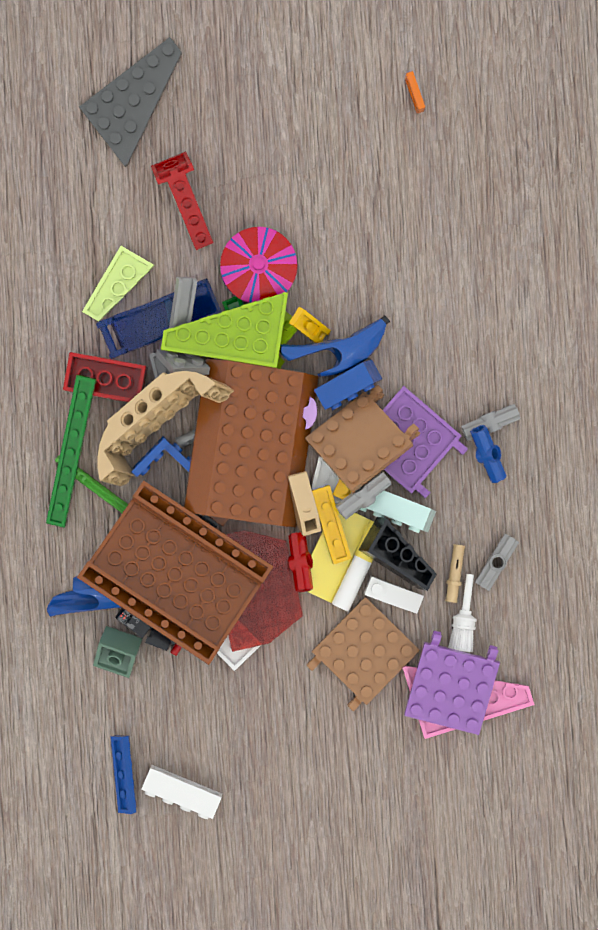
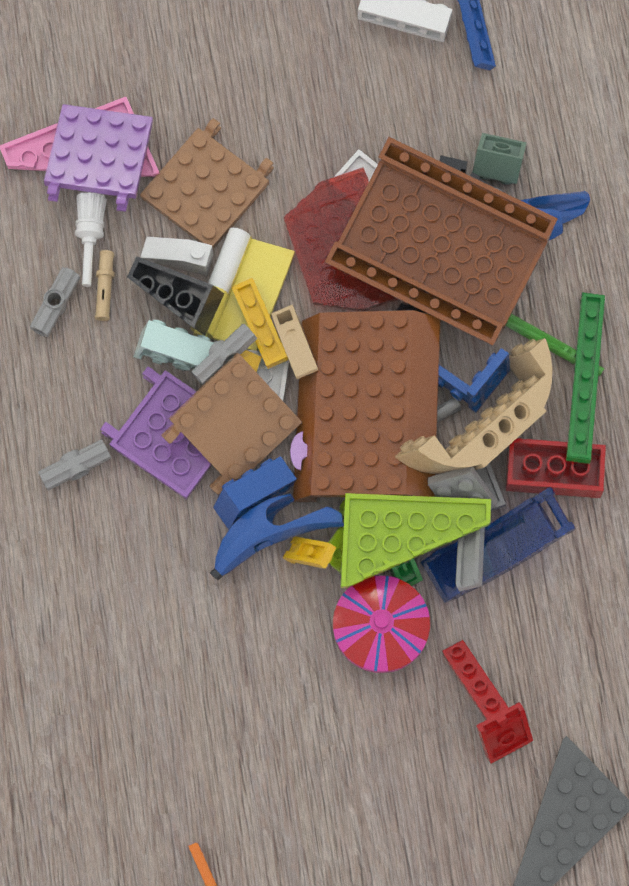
camera: 175 degrees right, 15 degrees down
(120, 277) = (554, 592): yellowish green wing -> none
(300, 562) = (292, 276): red piece -> none
(488, 453) = (75, 424): blue piece -> none

